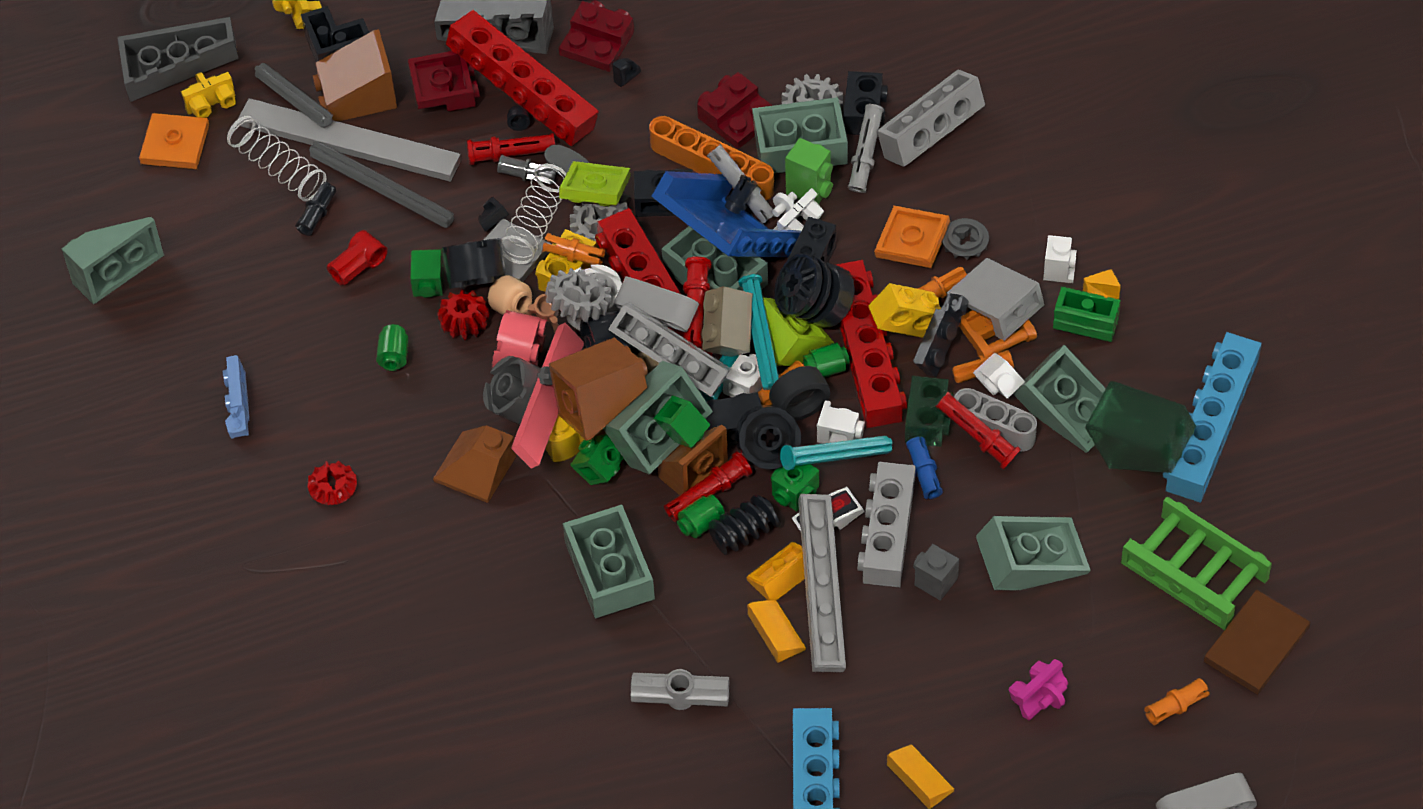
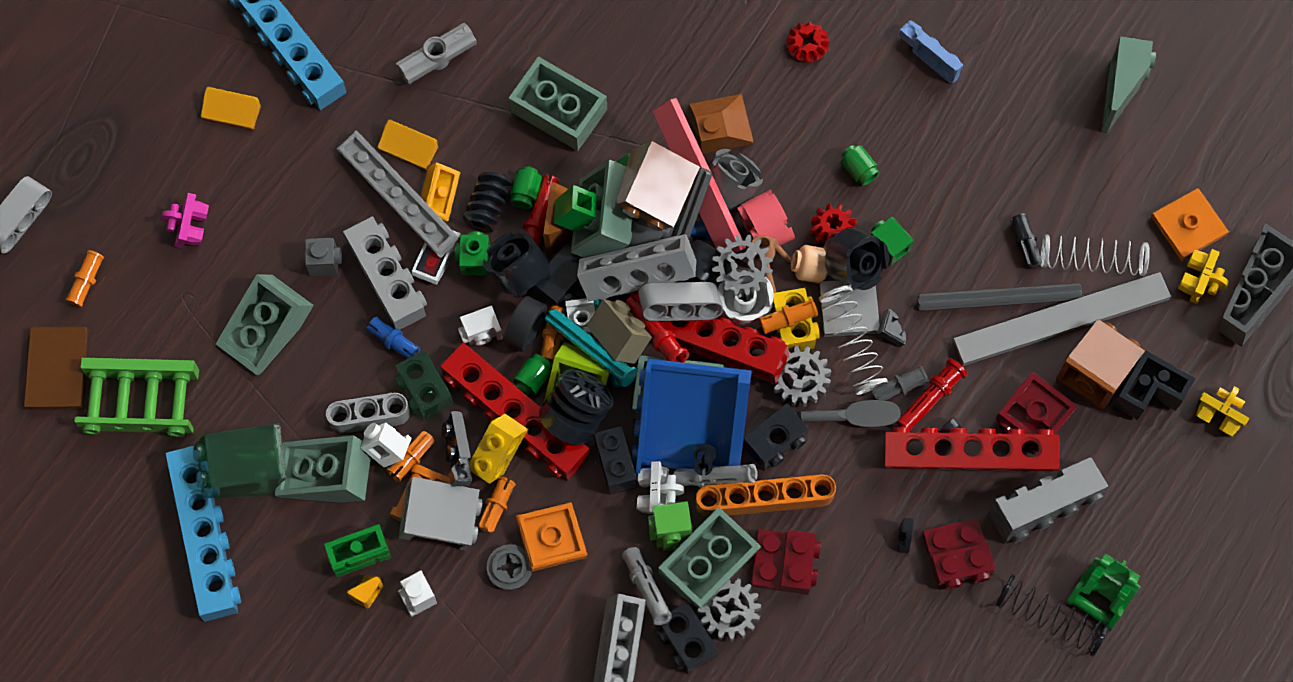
camera: 140 degrees right, 15 degrees up
(293, 95) = (1139, 320): dark grey axle -> none
(362, 252) = (954, 224): red piece -> none
(594, 183) = (827, 392): lime plate -> none
(834, 451) = (459, 293): teal axle -> none
(989, 439) = (359, 387): red pin -> none

